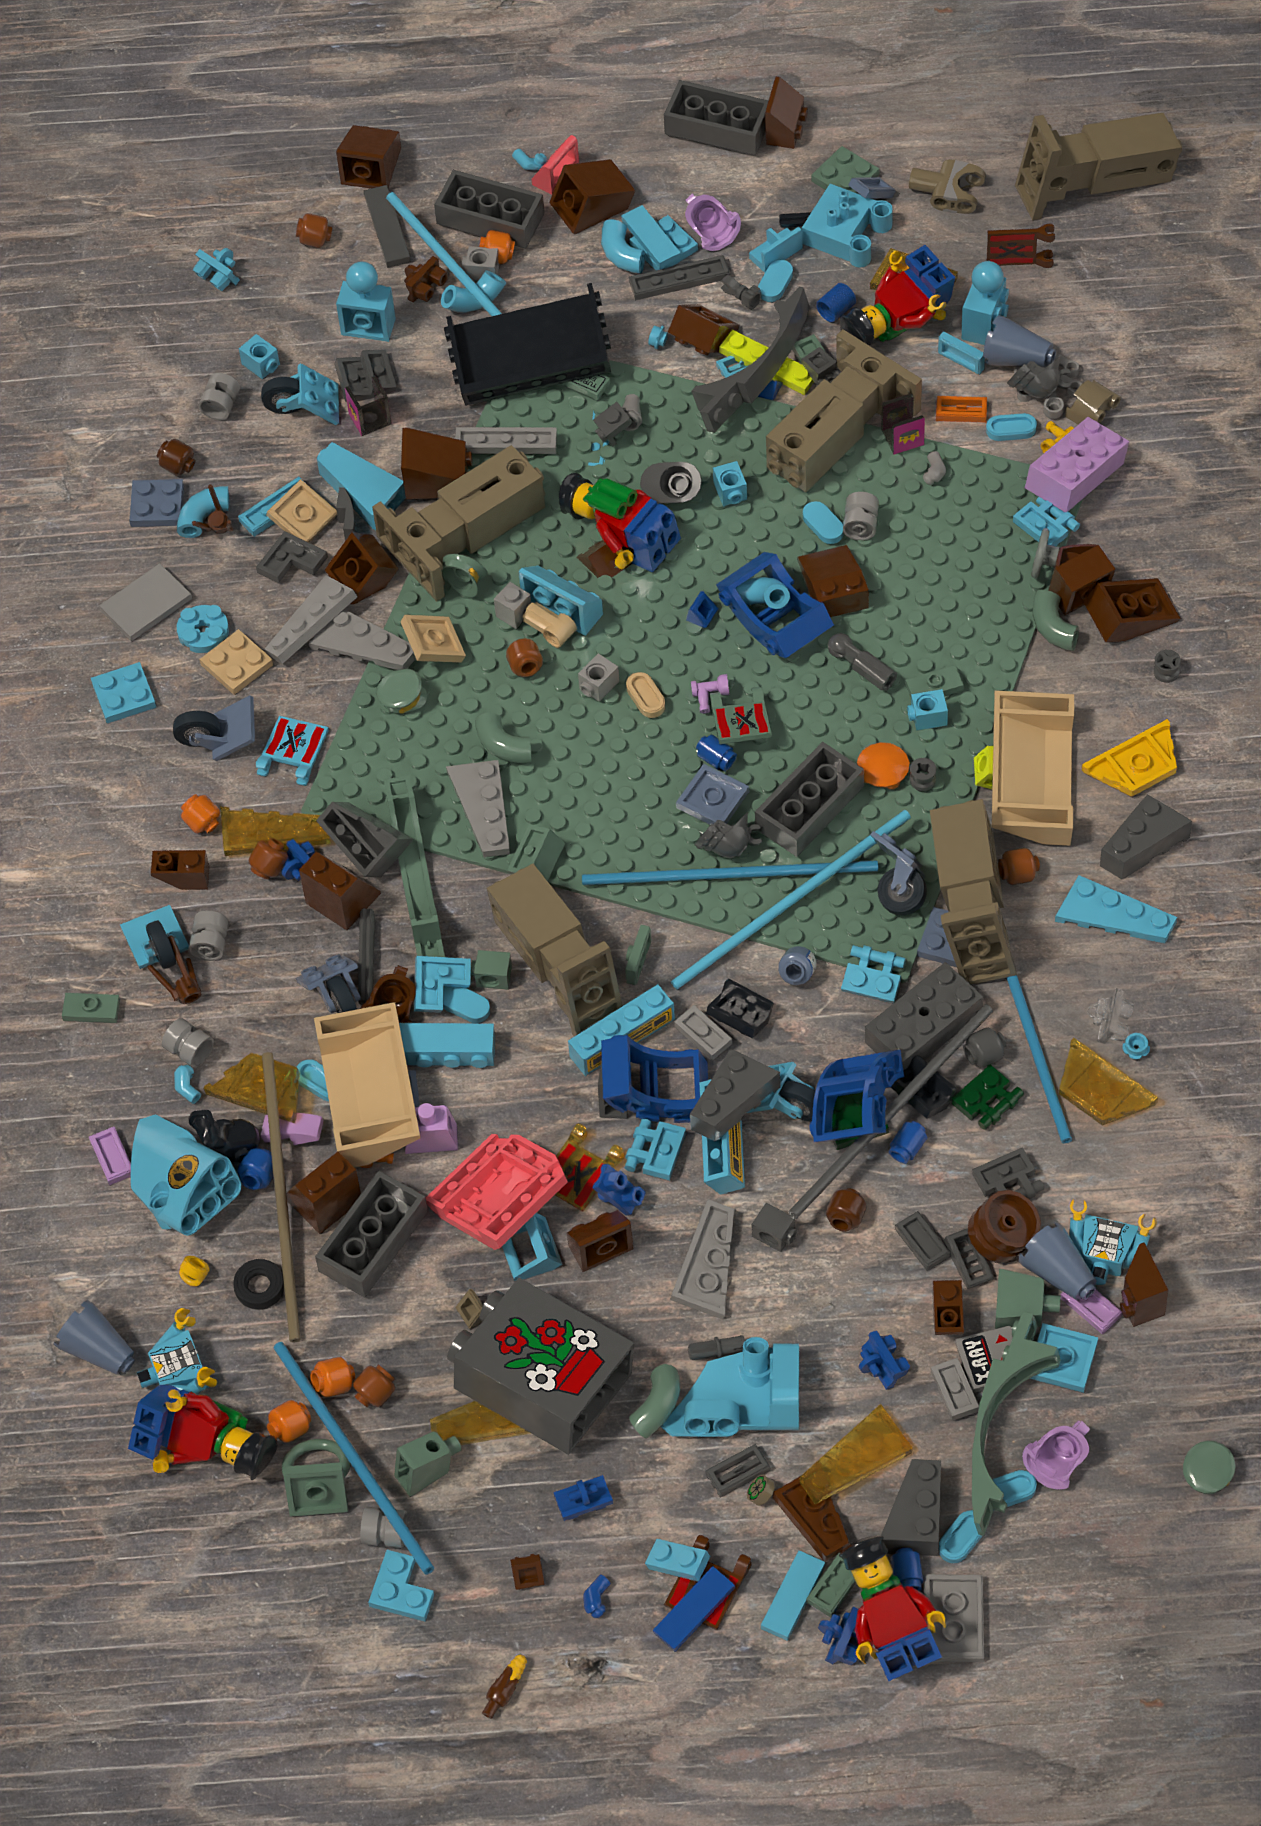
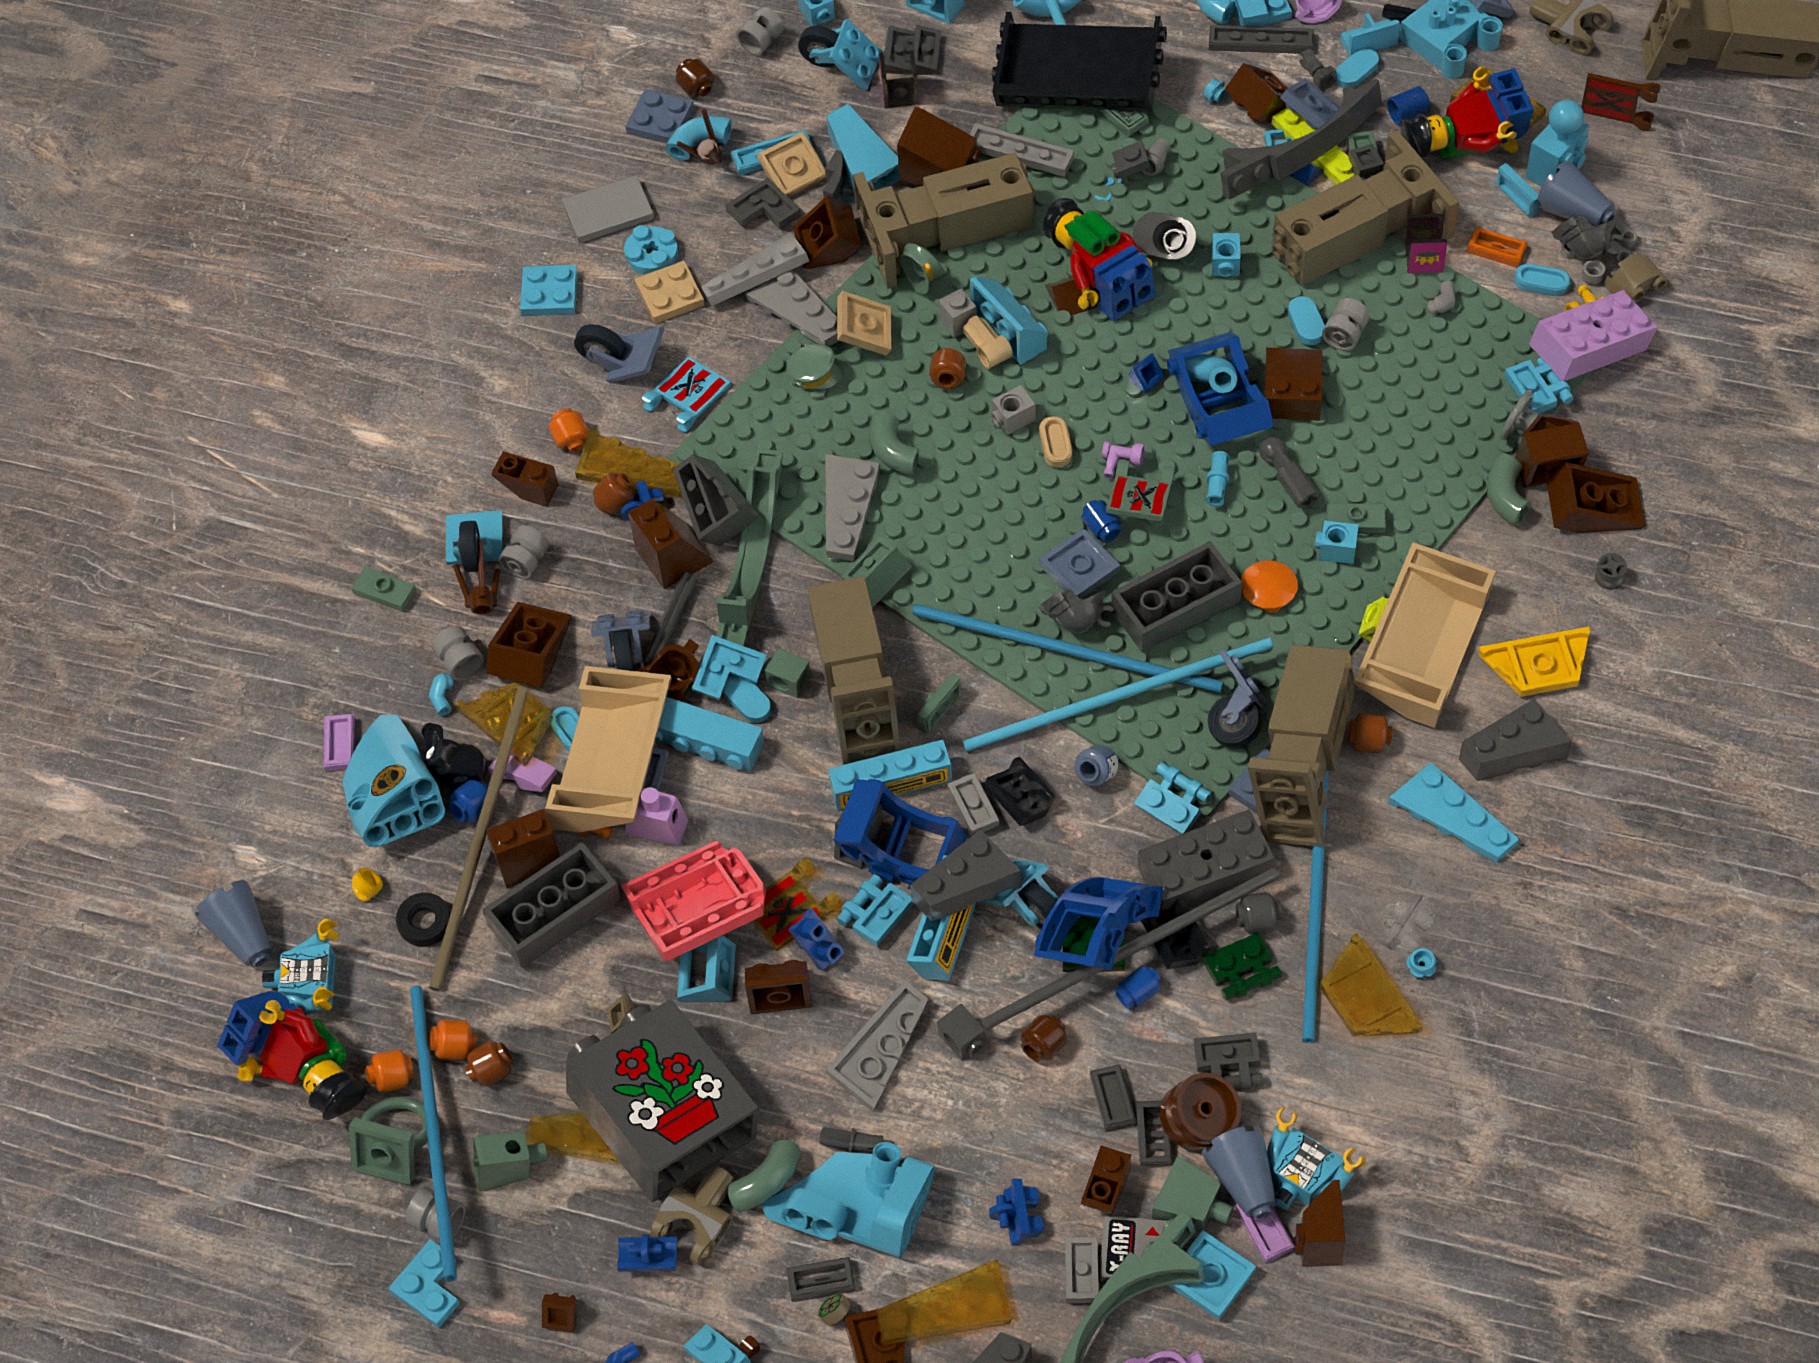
camera: 20 degrees right, 0 degrees up
(247, 1016) = (527, 644): none -> reddish brown slope
(611, 1449) = (697, 1213): none -> dark tan connector
(752, 326) = (1310, 103): none -> sand blue plate
(802, 685) = (1217, 478): none -> medium azure pin
(919, 780) = (1300, 612): dark grey wheel -> none

